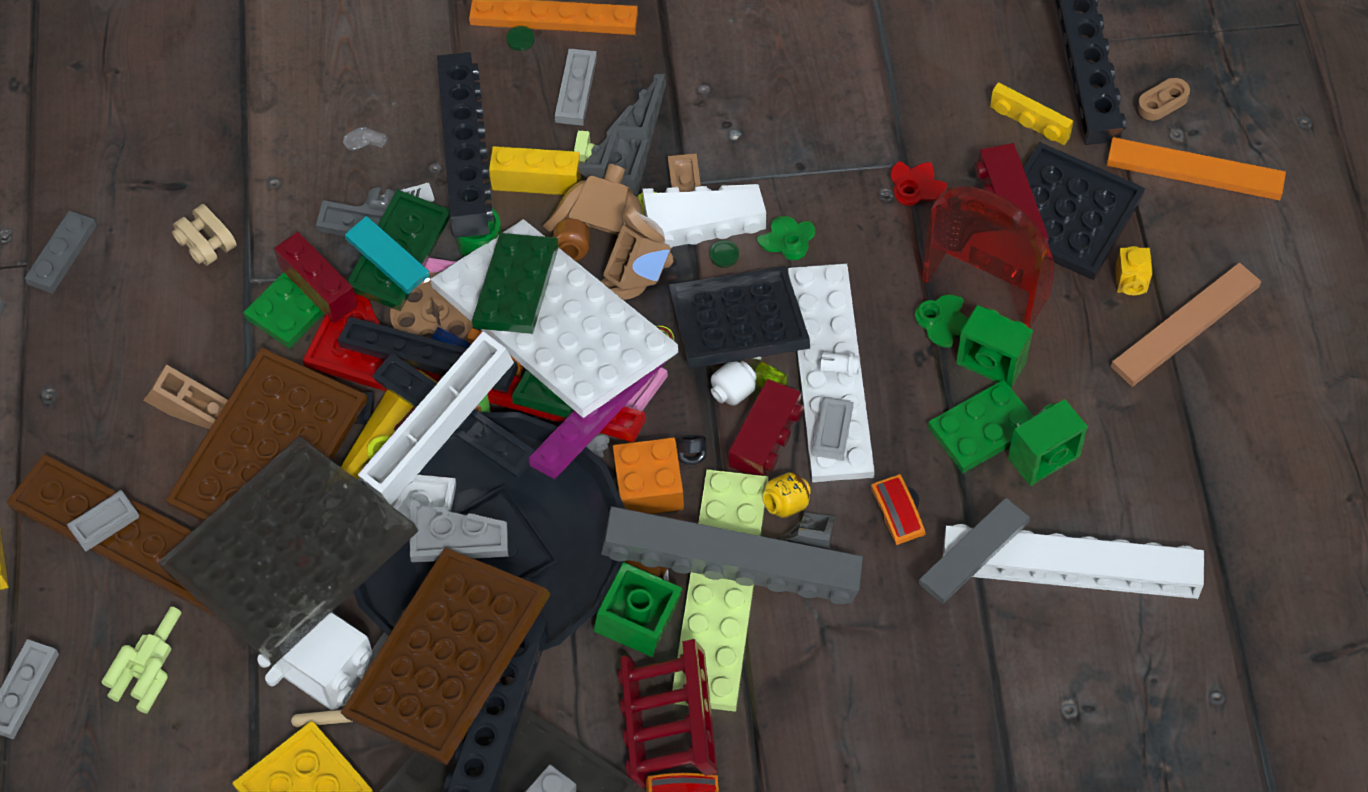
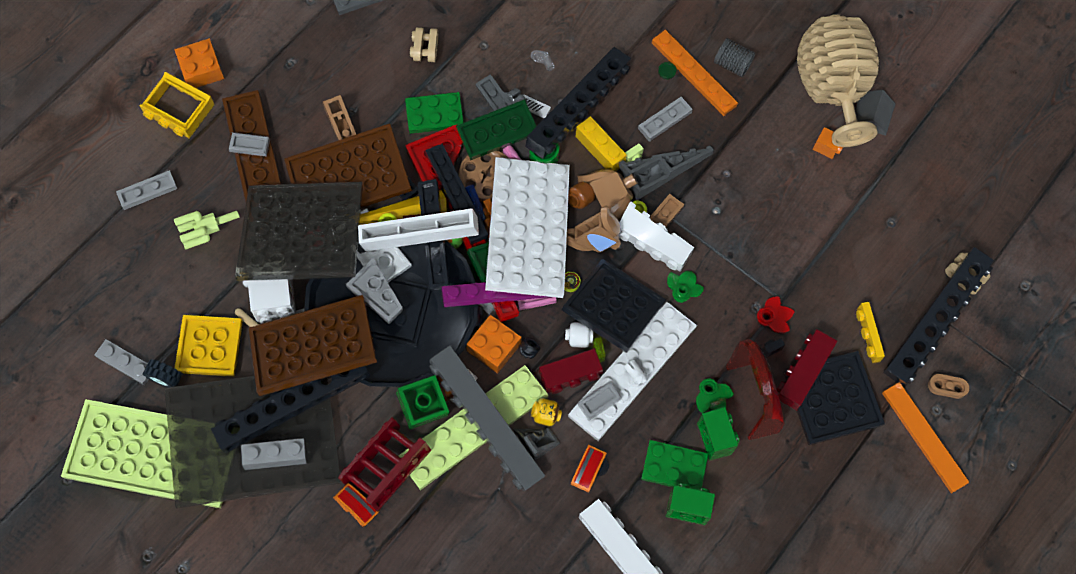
camera: 40 degrees right, 10 degrees up
(315, 277) = (446, 110): dark red brick -> none
(387, 255) = (486, 128): teal tile -> none
(515, 283) = (526, 195): dark green plate -> none
(724, 253) = (646, 266): dark green piece -> none
(974, 551) = (596, 524): dark grey tile -> none
(1133, 270) = (830, 460): yellow brick -> none
(1185, 324) = (829, 511): nougat tile -> none

